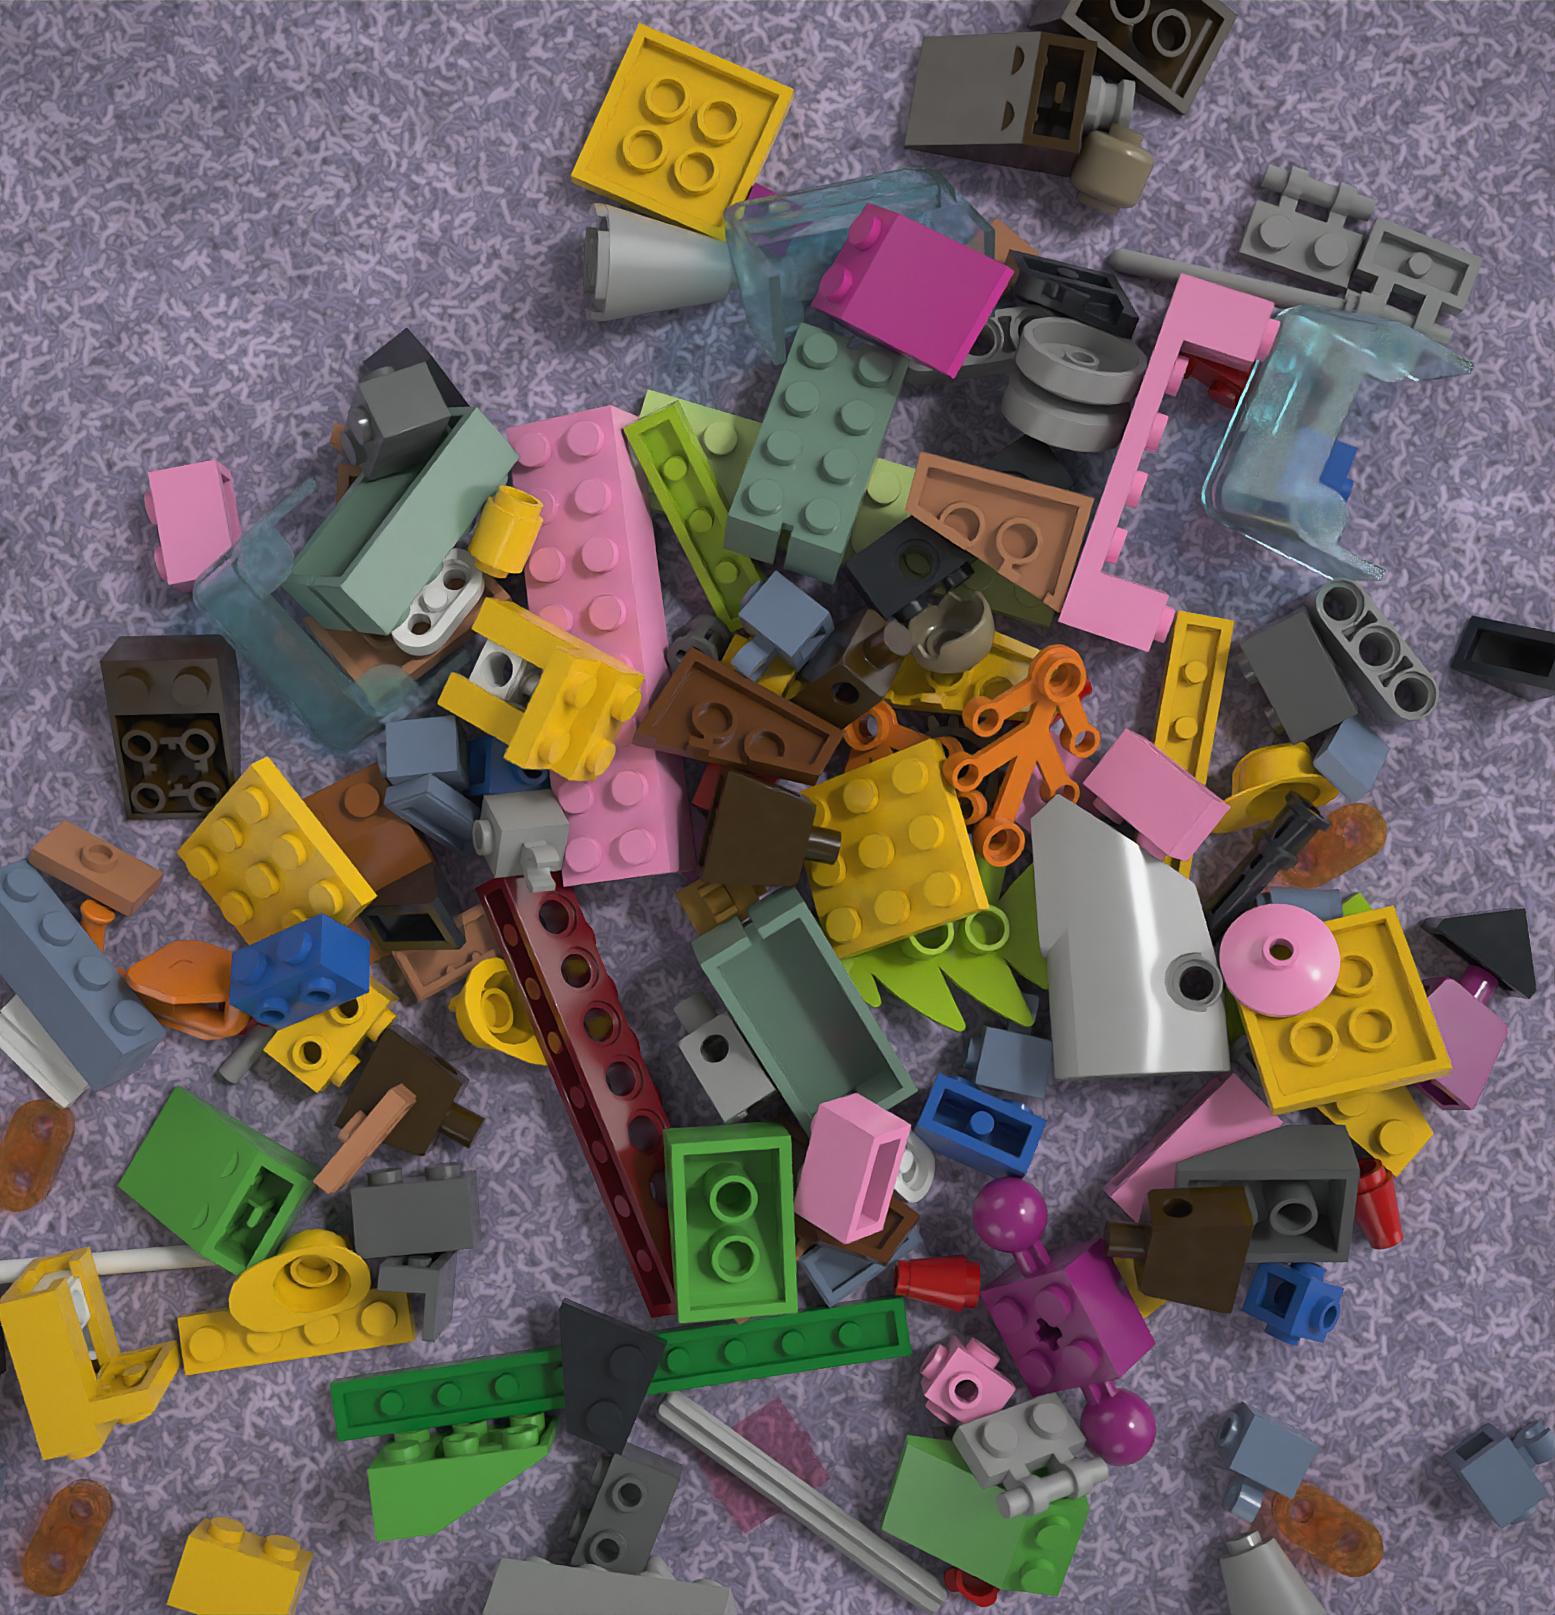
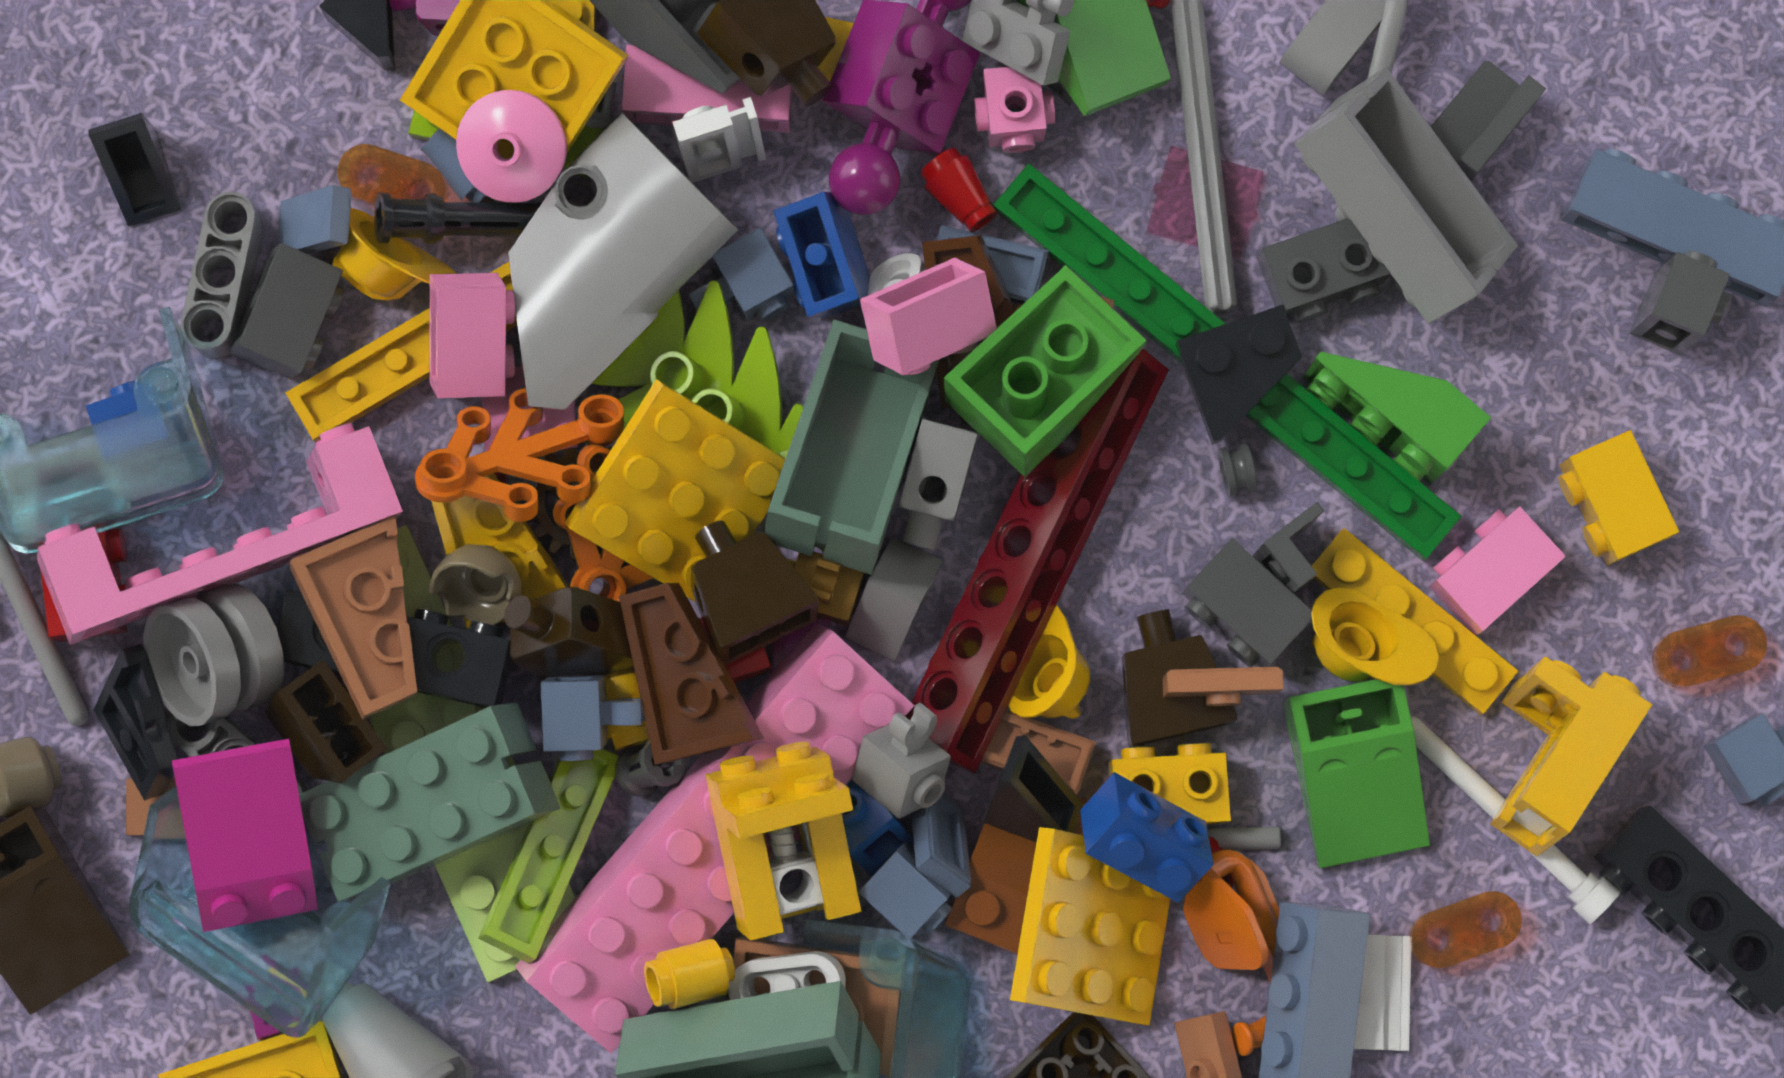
camera: 135 degrees left, 5 degrees down
(274, 1430) = (1496, 570): none -> bright pink brick
(529, 1299) = (1237, 469): none -> dark grey bush
(664, 946) = (893, 598): none -> light grey slope
(941, 422) = (323, 725): none -> dark brown torso
(1143, 1127) = (717, 139): none -> white plate

